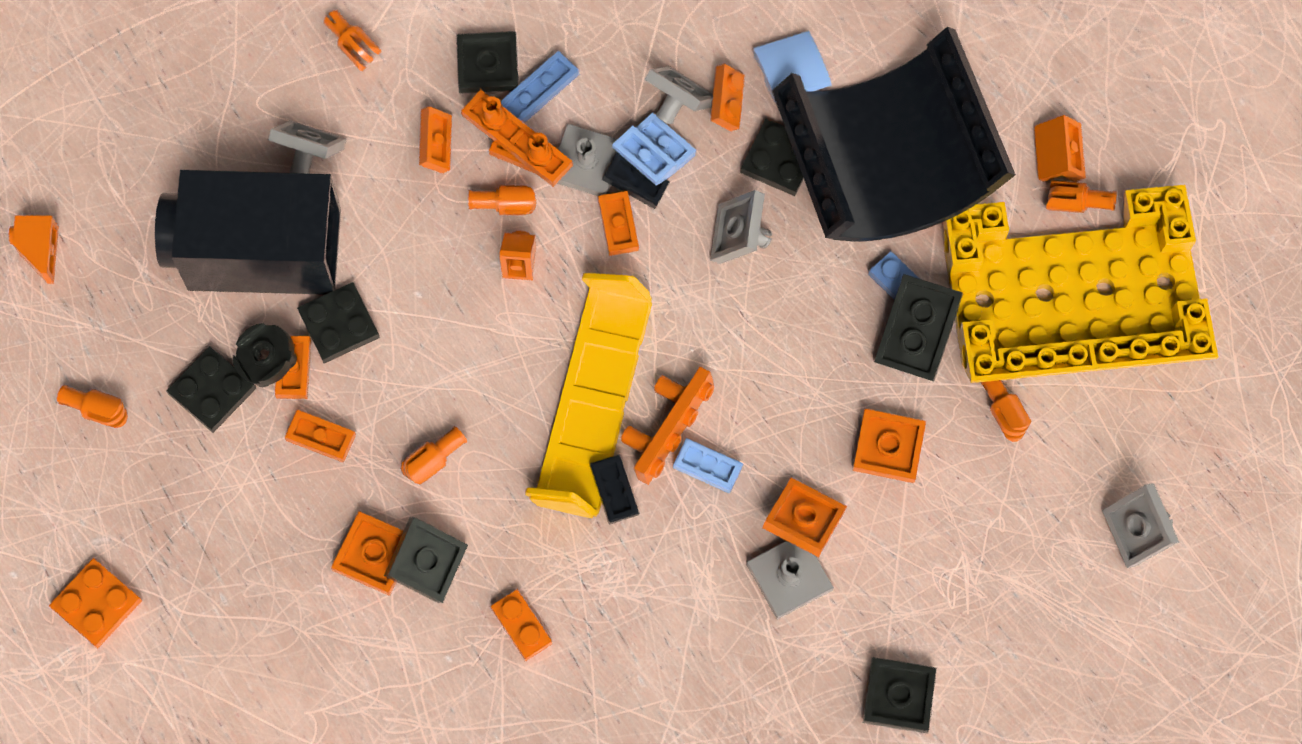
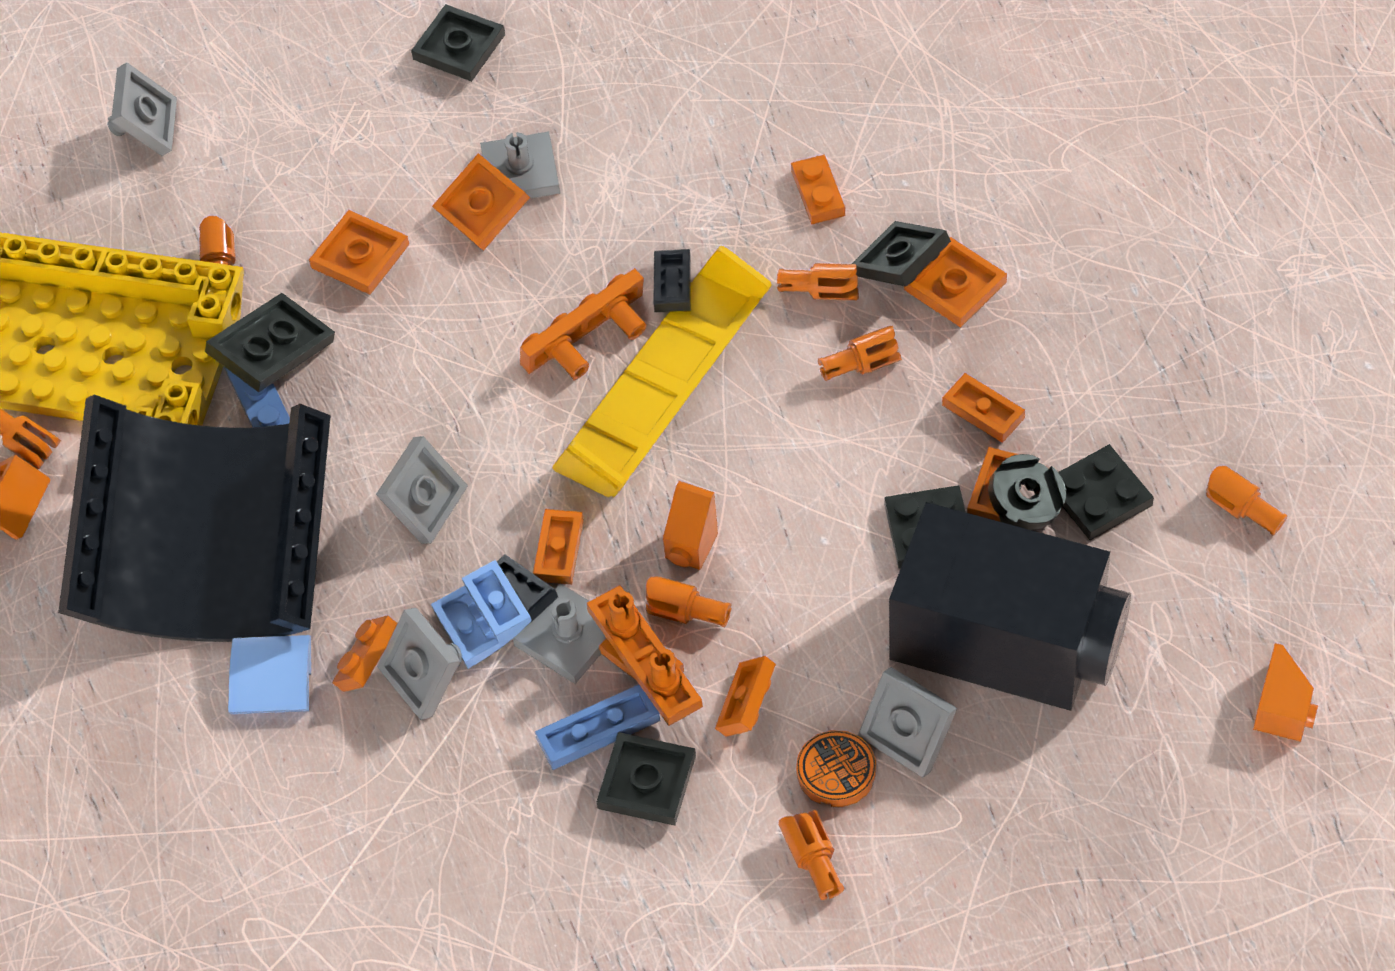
camera: 155 degrees left, 15 degrees down
(95, 603) = (1278, 312): orange plate -> none
(354, 110) = (836, 768): none -> orange tile
(486, 520) = (822, 281): none -> orange arm
(708, 465) = (560, 278): light blue plate -> none
(773, 159) = (343, 578): pearl dark grey plate -> none

